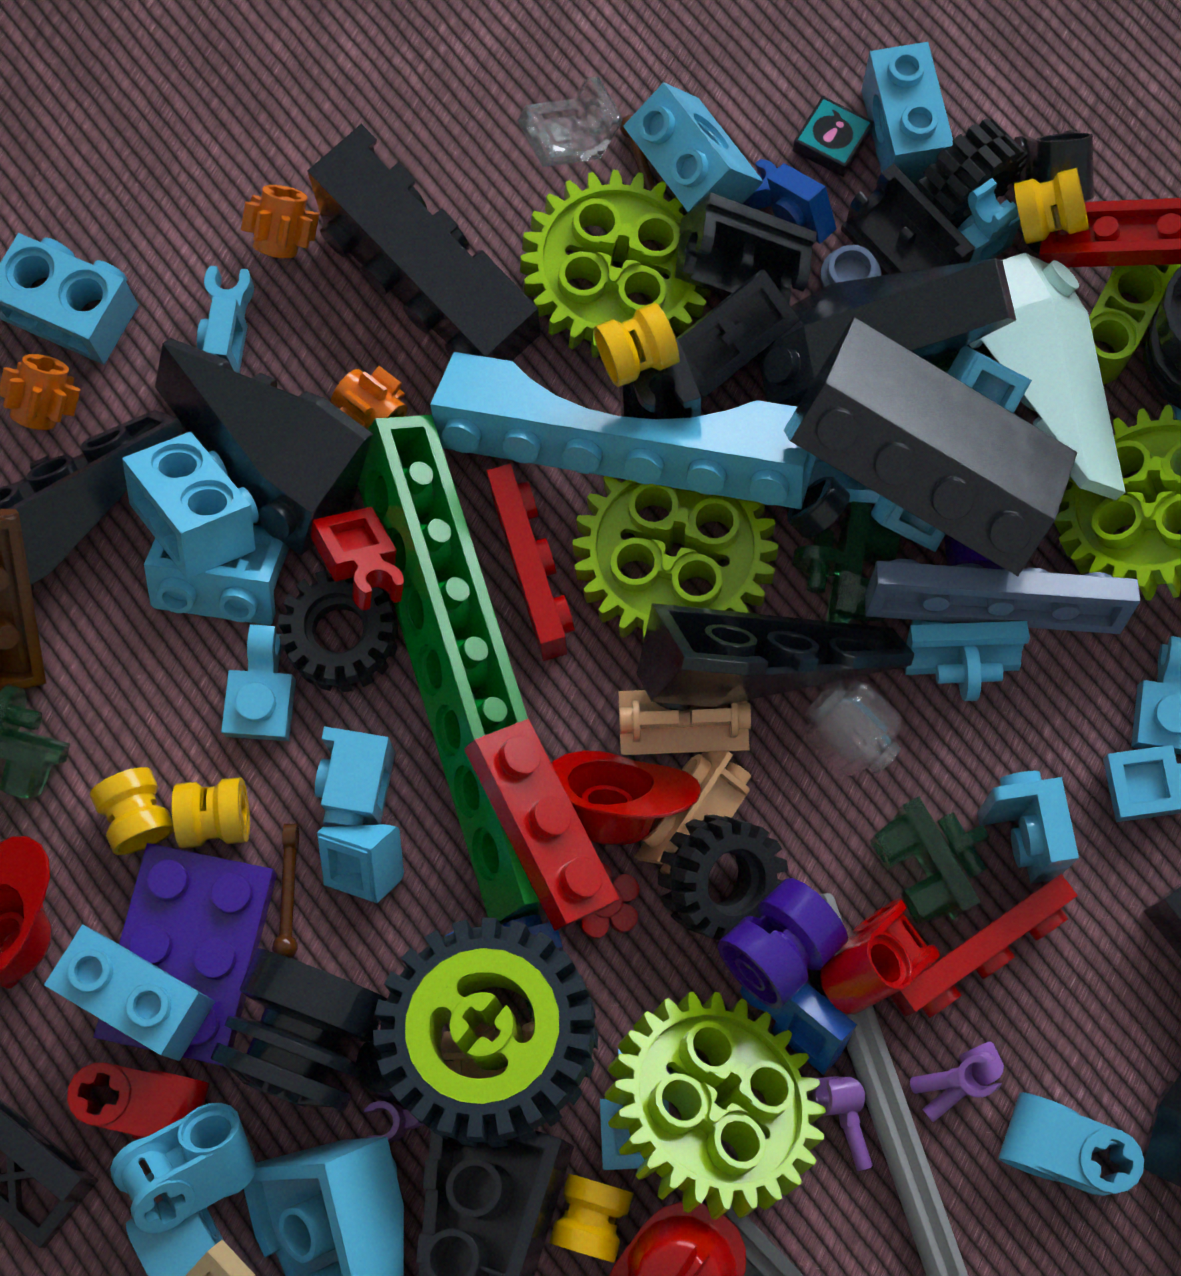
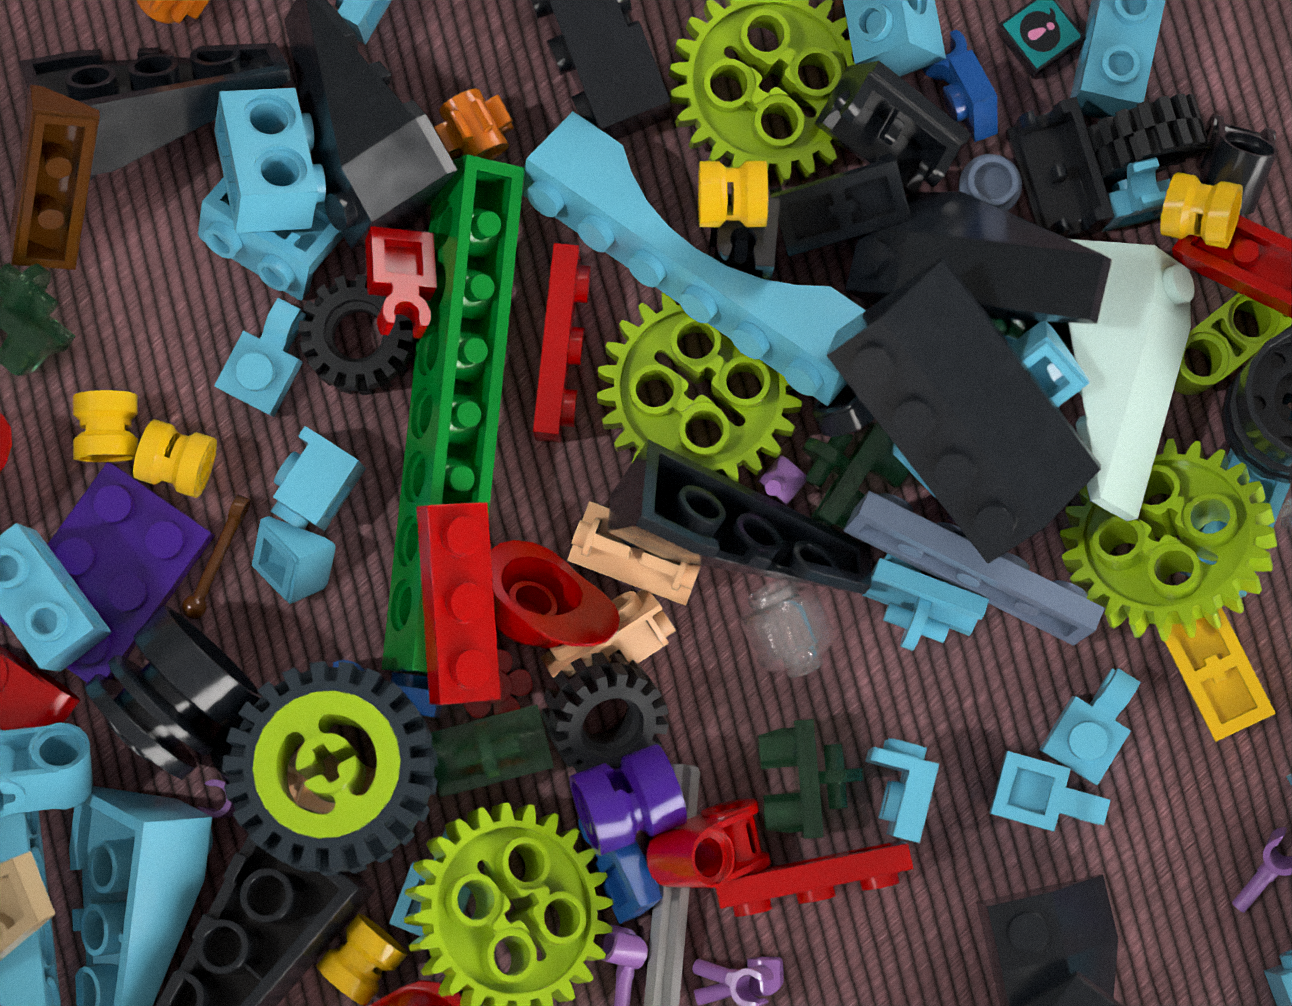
camera: 20 degrees right, 10 degrees up
(631, 956) = (491, 750): none -> clear green hips
(786, 598) = (782, 479): none -> medium lavender hand

